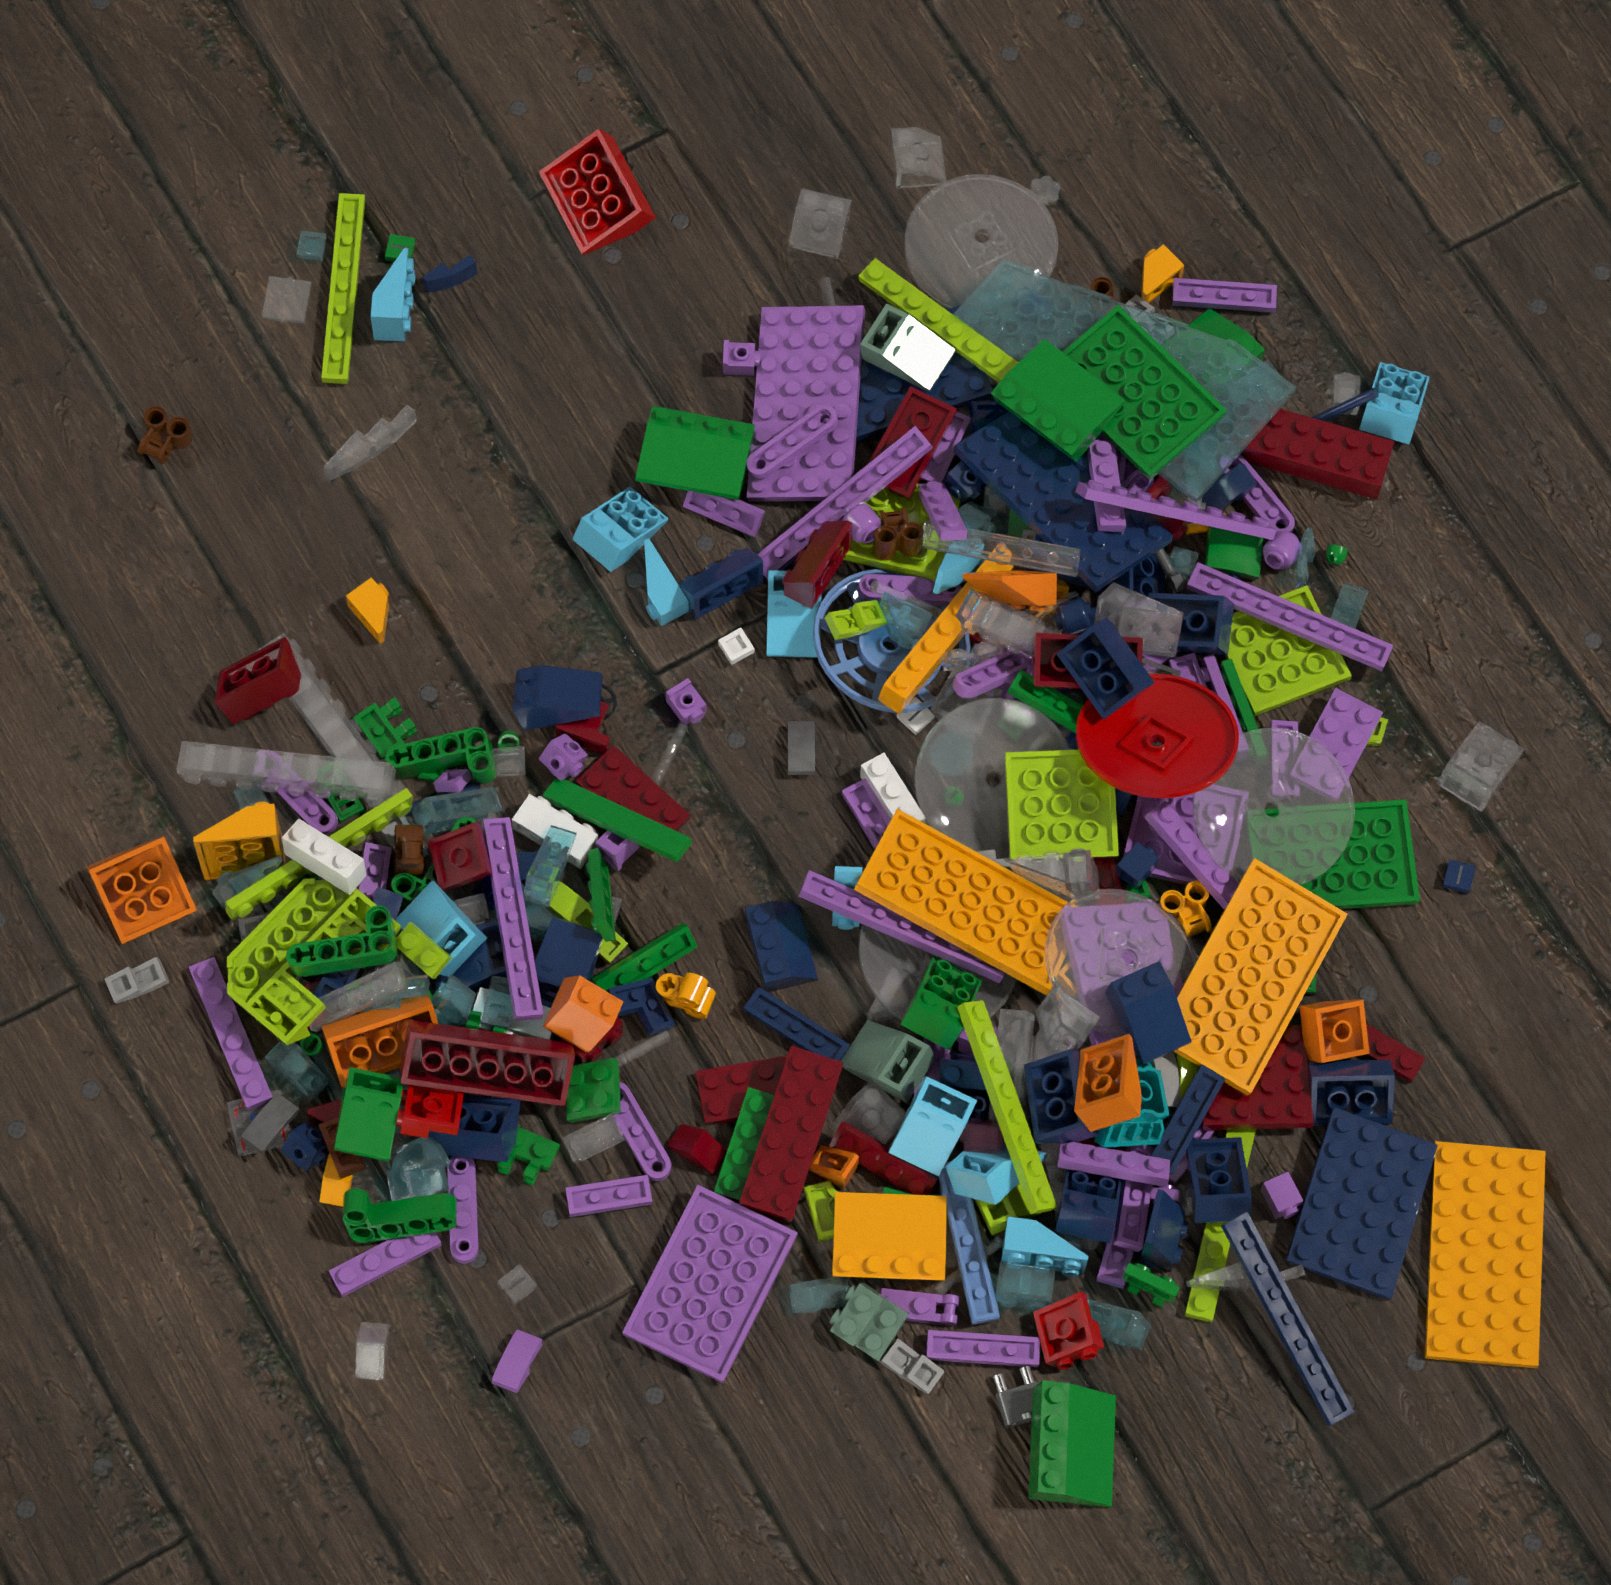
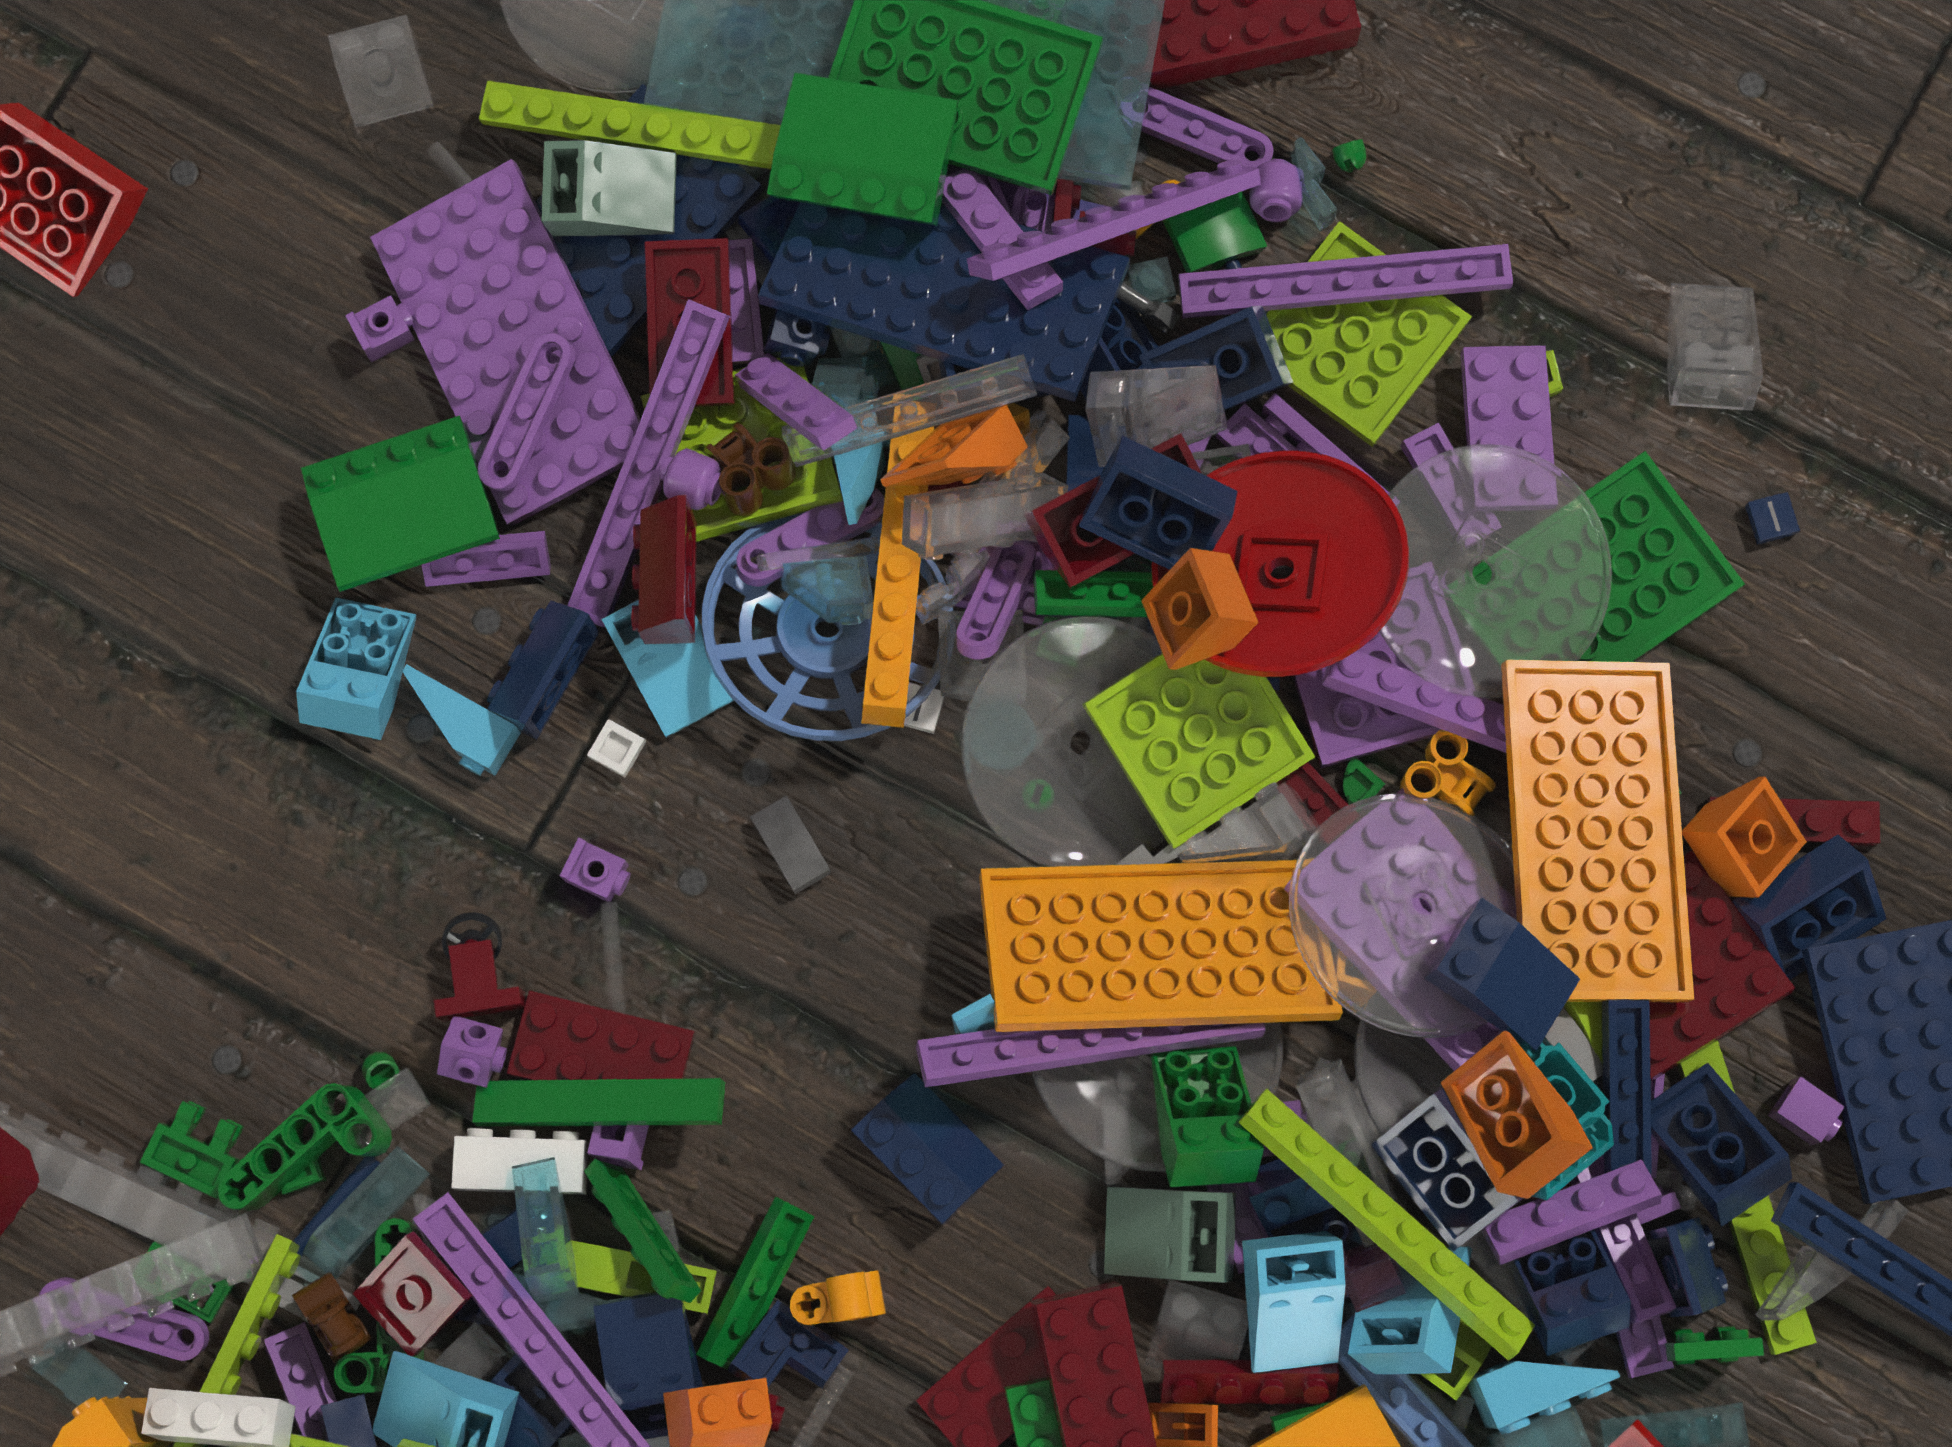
camera: 25 degrees left, 10 degrees up
(371, 607) = (73, 983): light orange slope -> none
(452, 780) = (334, 1176): medium lavender plate -> none
(555, 695) = (409, 971): dark blue slope -> none
(794, 1025) = (1017, 1255): dark blue plate -> none
(855, 621) = (765, 624): lime slope -> none
(867, 810) = (937, 886): medium lavender plate -> none
(889, 787) = (951, 840): white brick -> none
(1064, 1021) = (1397, 1058): clear slope -> none
(1074, 616) = (1062, 449): dark blue head -> none
(1096, 730) = (1199, 608): none -> orange slope
(1137, 865) = (1348, 755): dark blue brick -> none
(1229, 488) = (1160, 142): dark blue slope -> none
(1237, 696) = (1346, 438): green plate -> none
(1349, 605) = (1409, 219): clear light blue slope -> none

